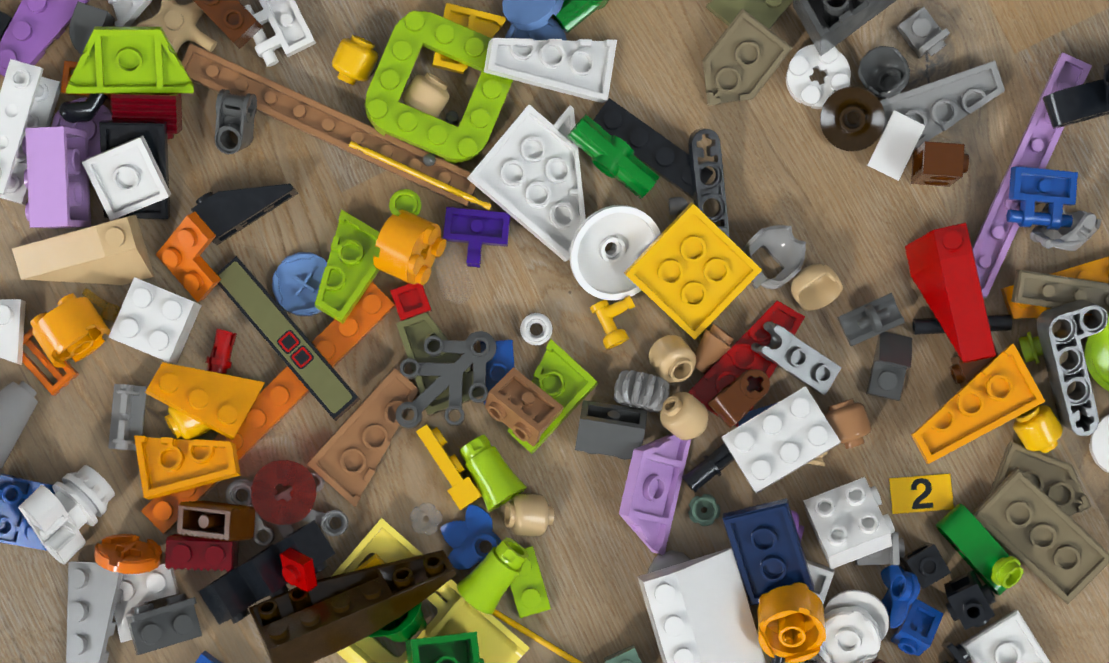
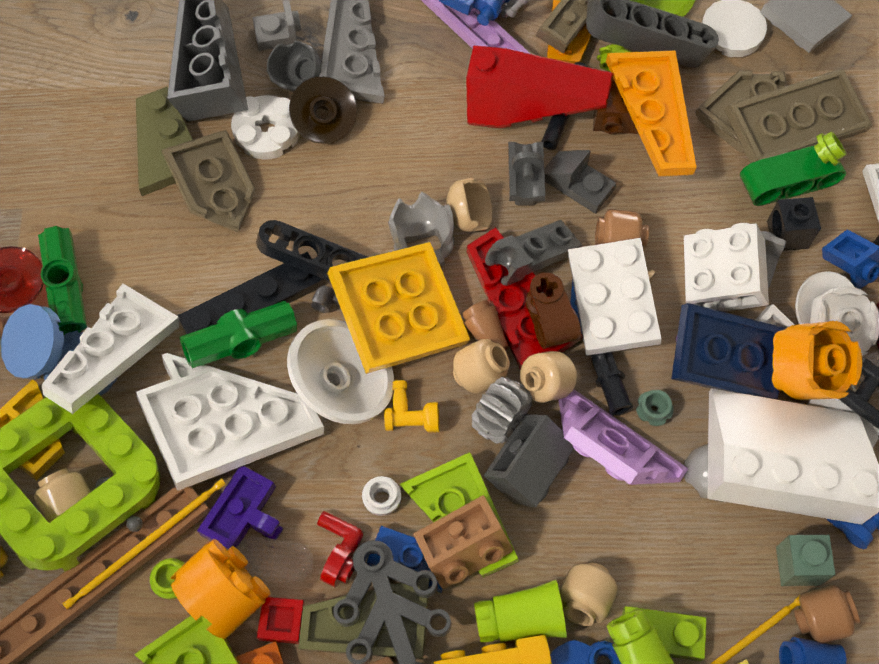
camera: 70 degrees left, 20 degrees down
(470, 323) = (339, 563): none -> red plate
(896, 145) = (368, 86): white sticker -> none
(901, 592) = (815, 257): blue plate -> none
(921, 493) = (715, 204): yellow sticker -> none
(939, 164) = (404, 54): reddish brown brick -> none
(969, 600) = (843, 198): black brick -> none
(1038, 429) = (698, 79): yellow head -> none

